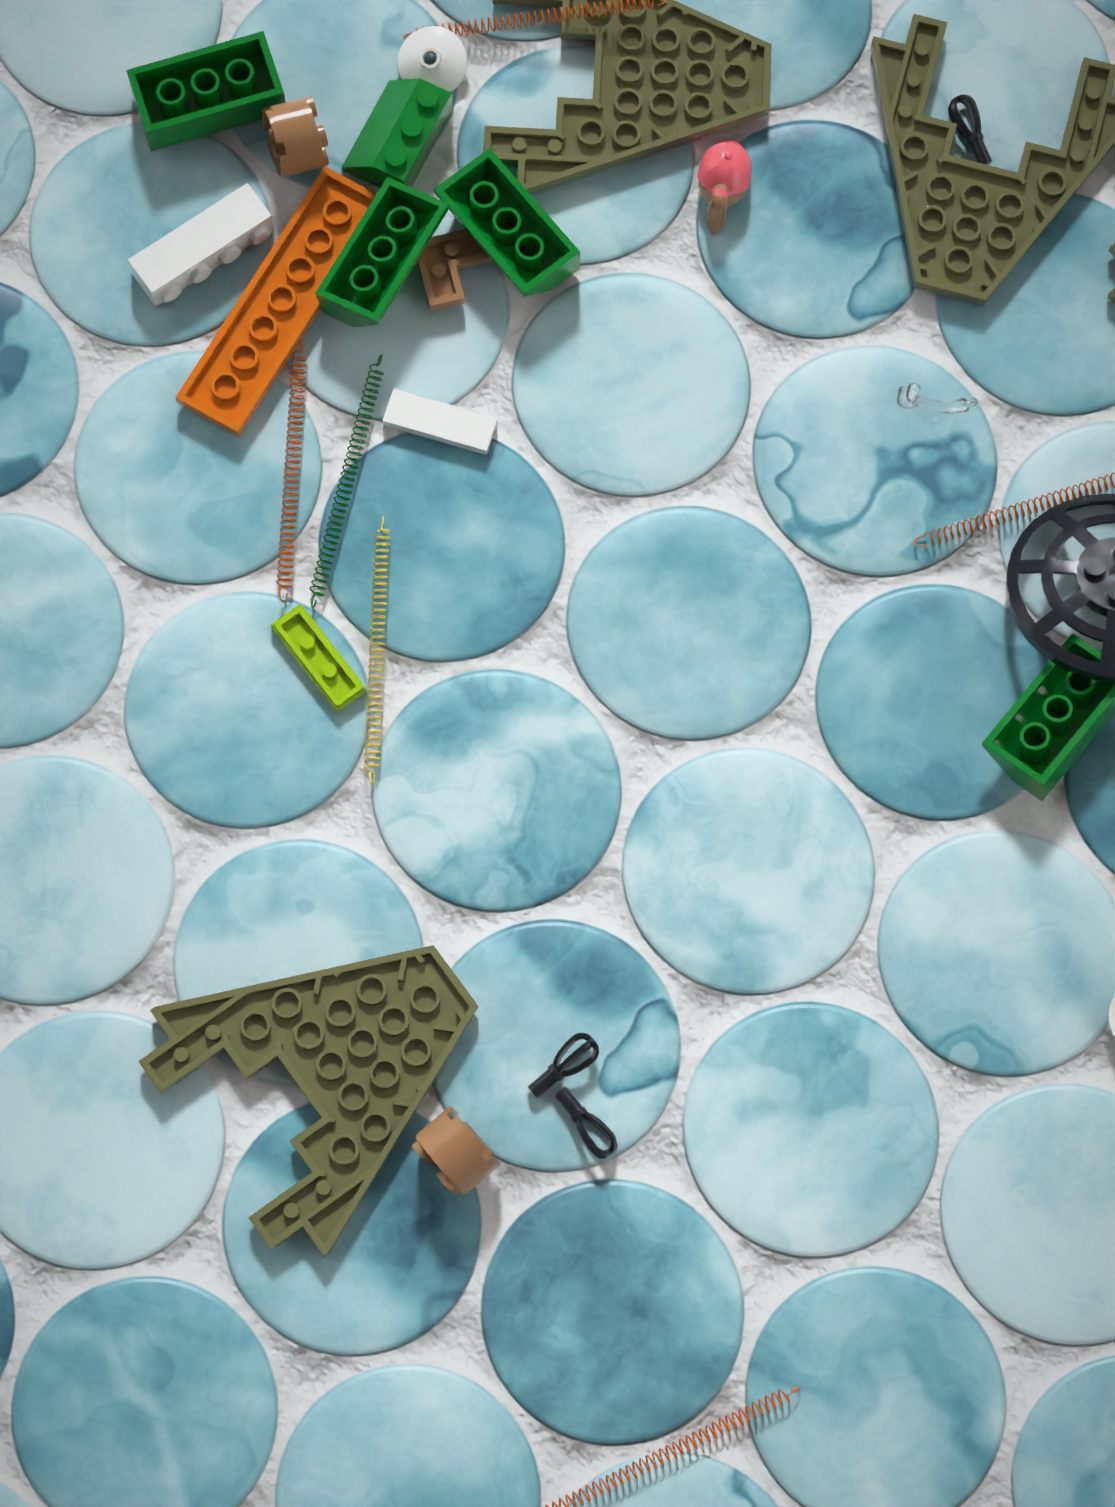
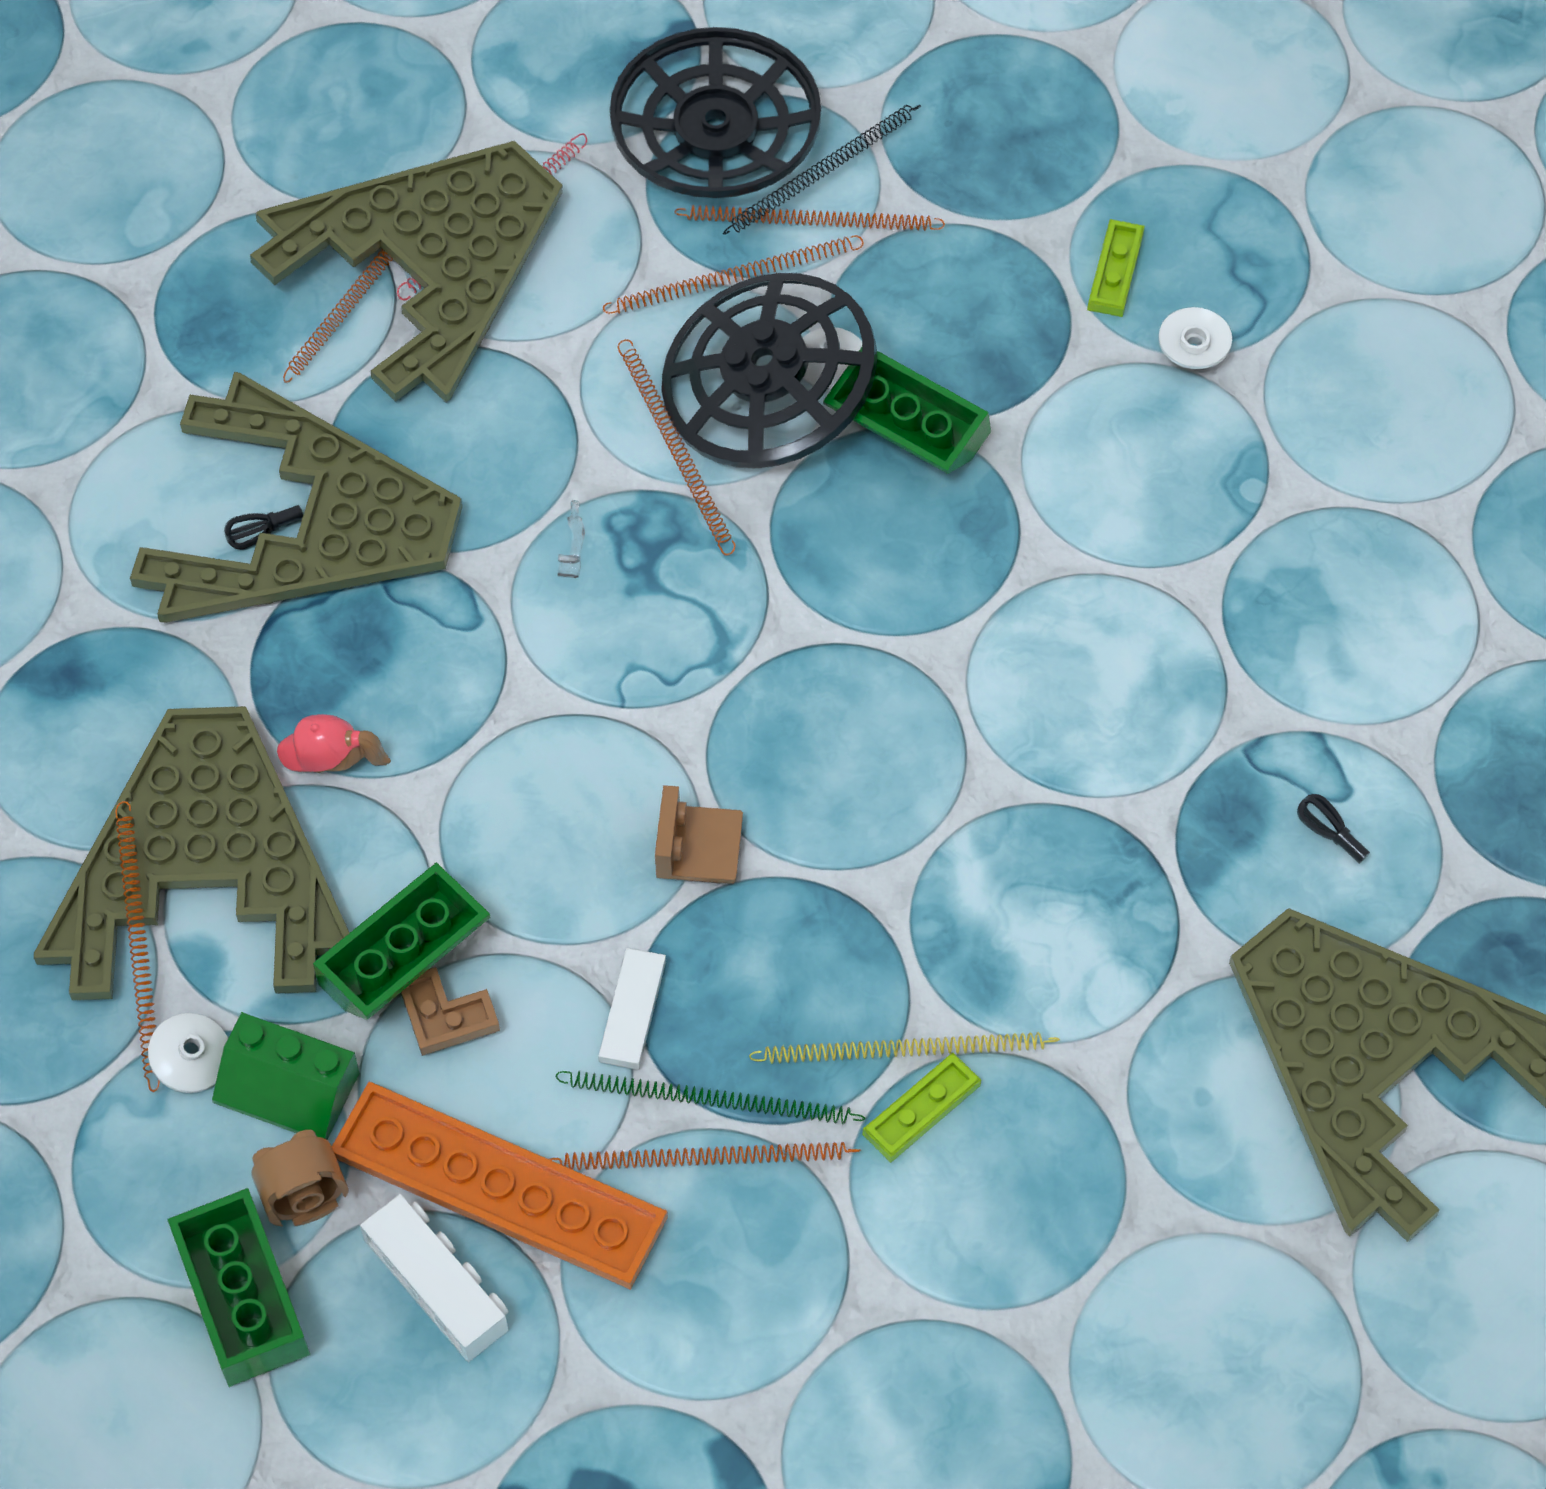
camera: 90 degrees left, 15 degrees down
(380, 254) = (447, 1067): green slope -> none
(455, 1151) = (1449, 910): medium nougat brick -> none
(580, 1113) = (1379, 812): black piece -> none
(599, 483) = (696, 841): none -> medium nougat bracket

